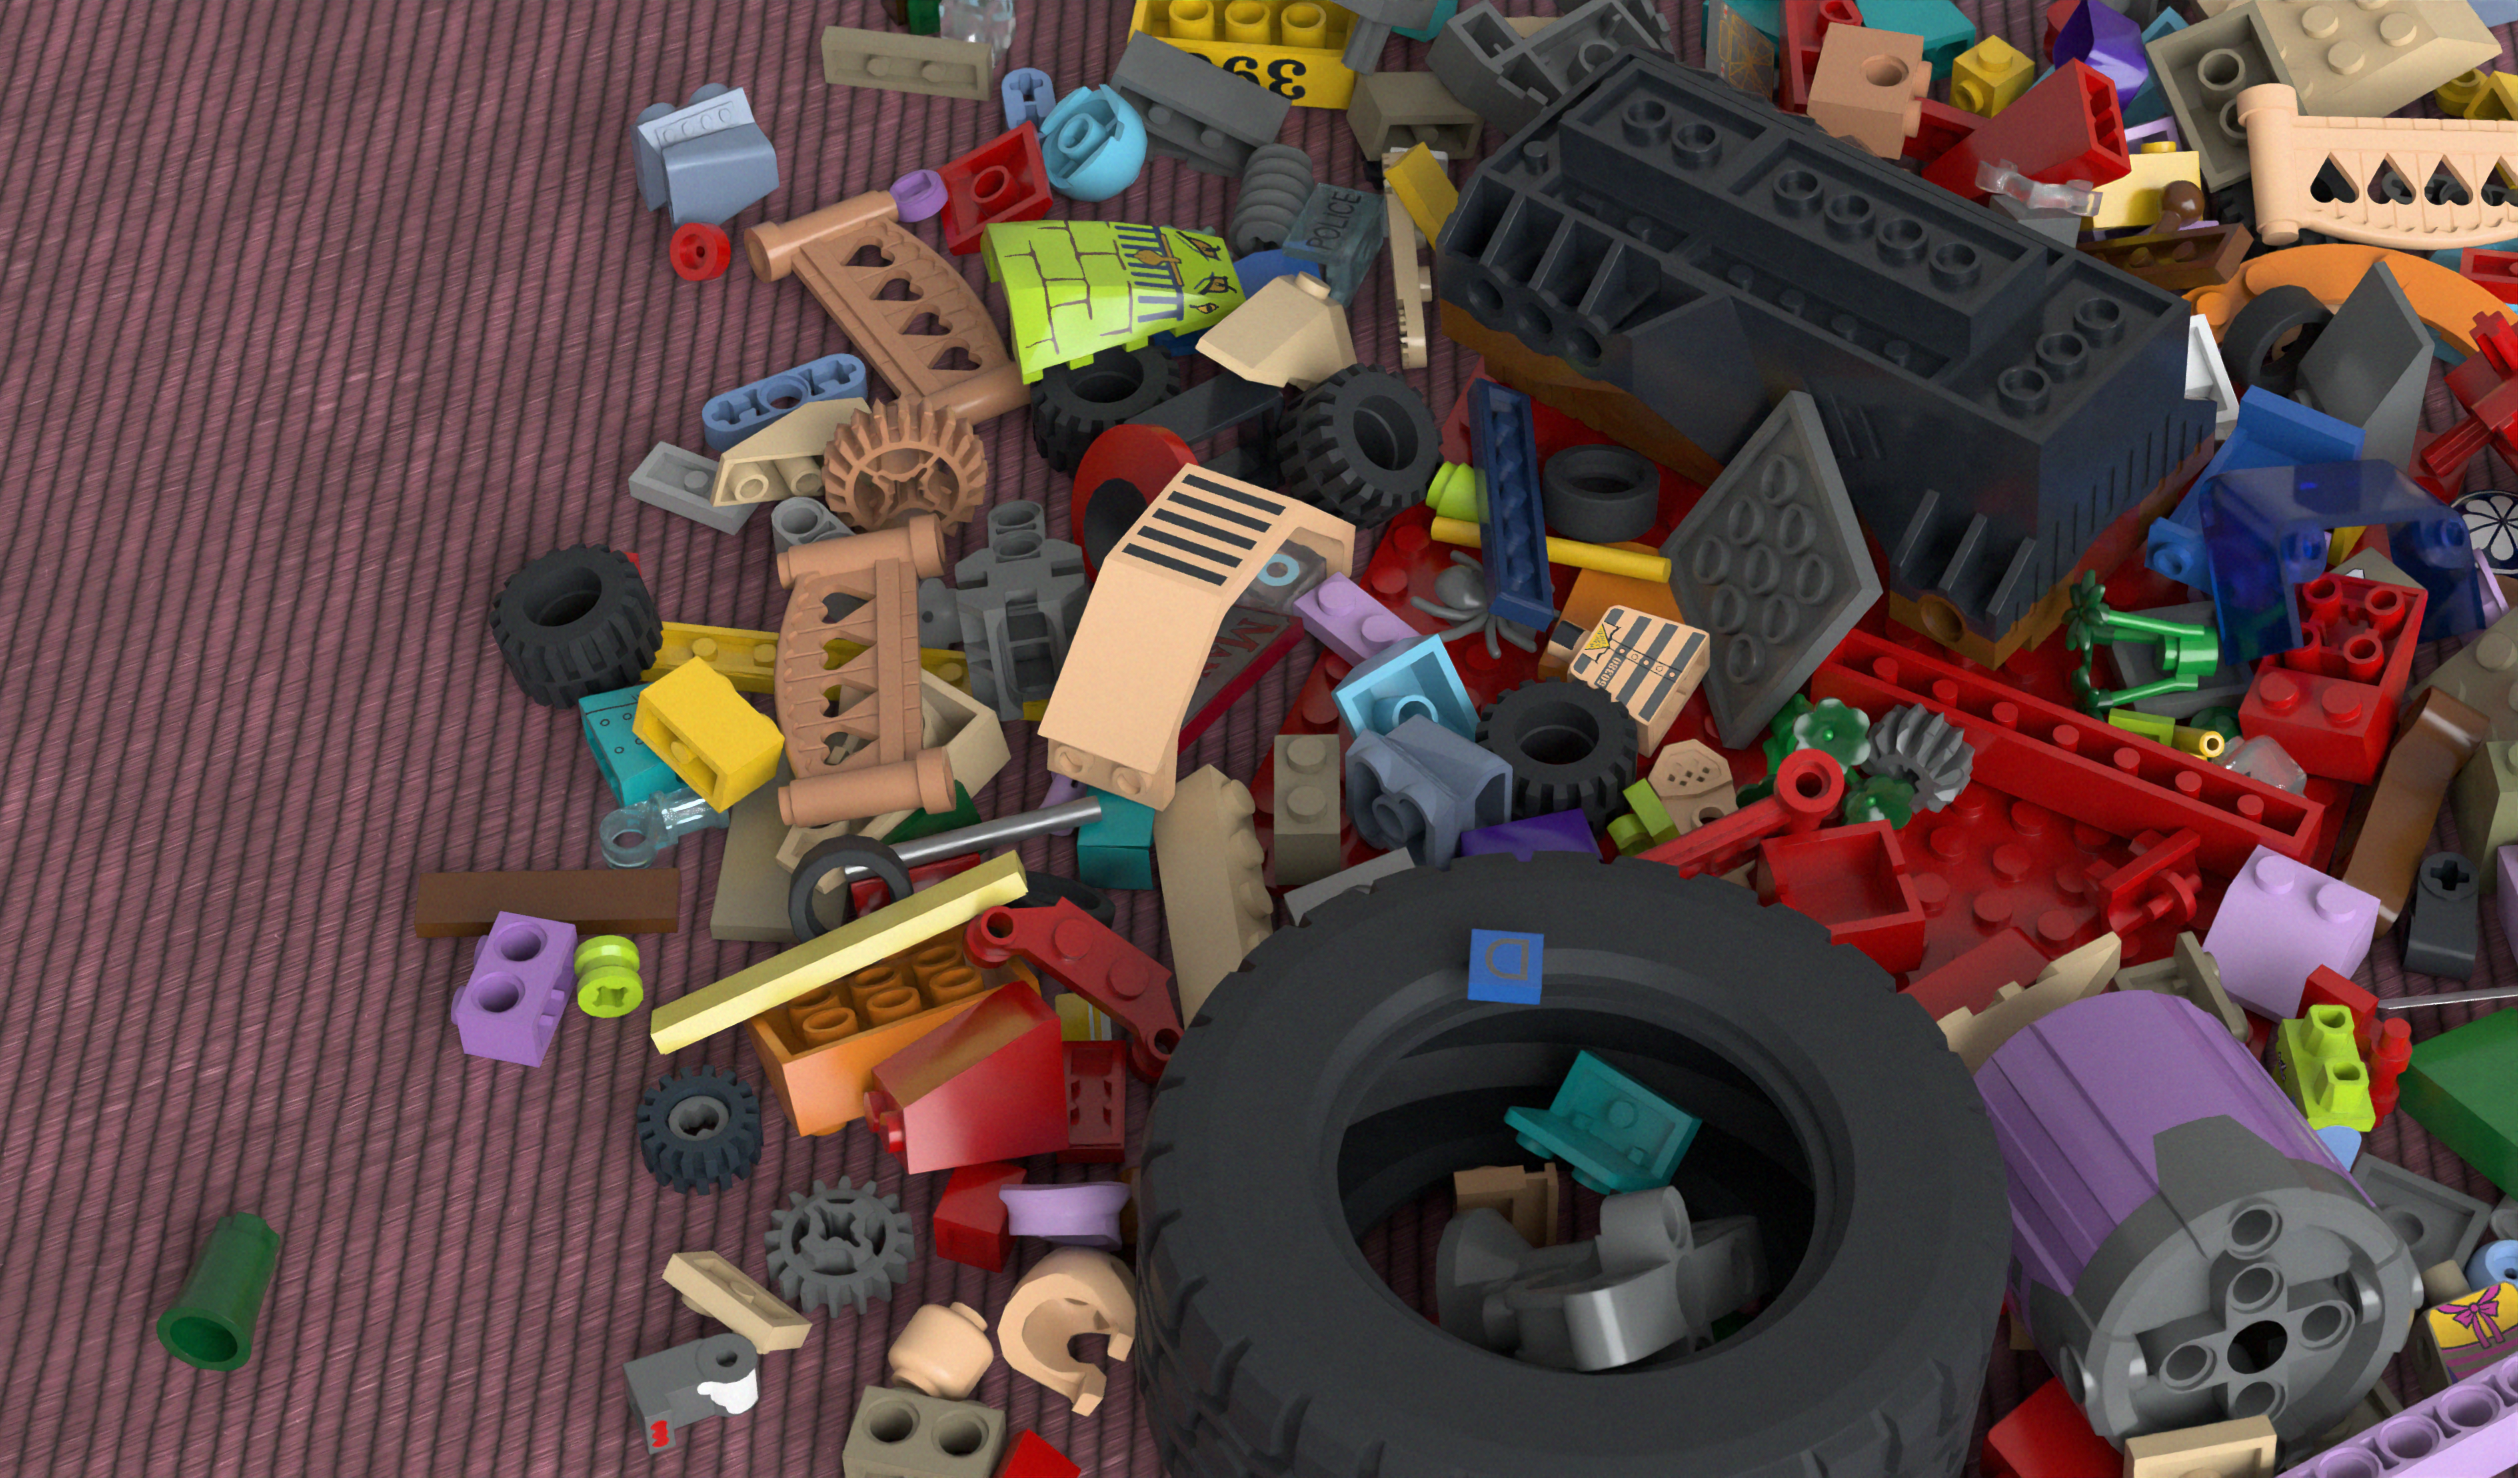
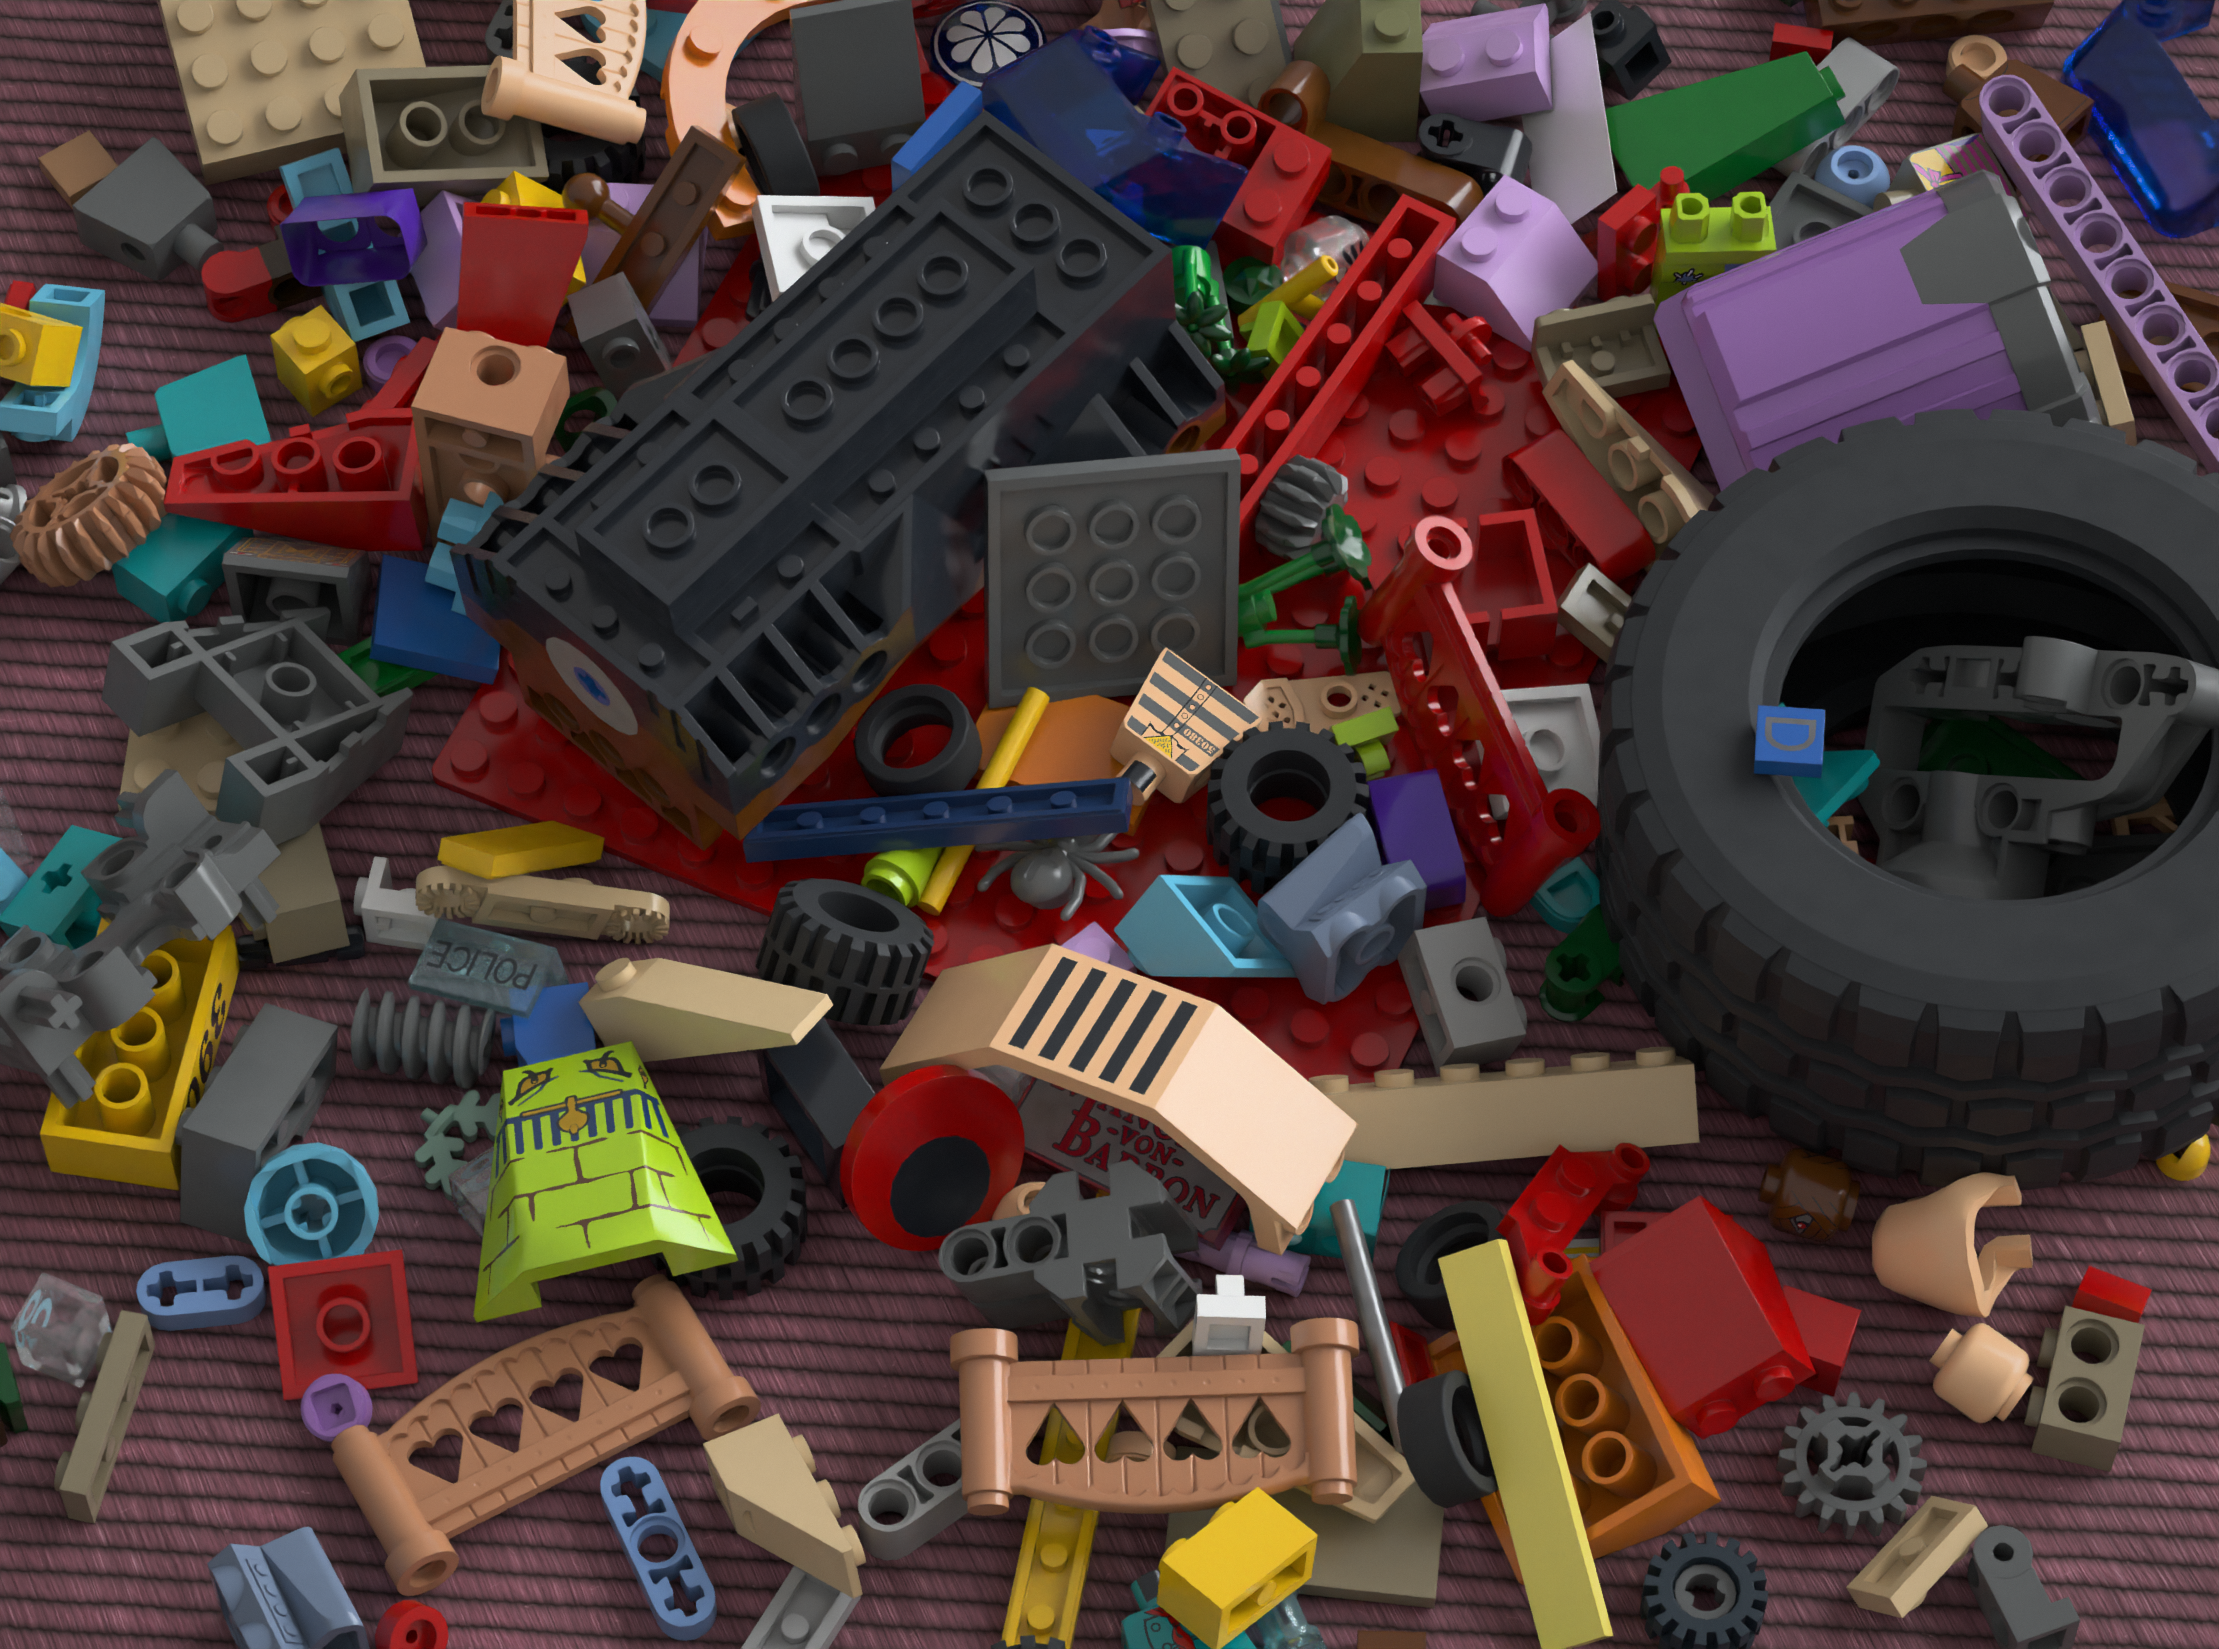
camera: 90 degrees left, 10 degrees up
(900, 454) = (848, 1387): nougat gear -> none
(953, 700) = (1229, 1320): none -> white tile
(1068, 1212) = (1847, 1238): lavender hat -> none
(1306, 808) = (1336, 1026): dark tan brick -> none
(2073, 197) = (561, 327): clear arm -> none

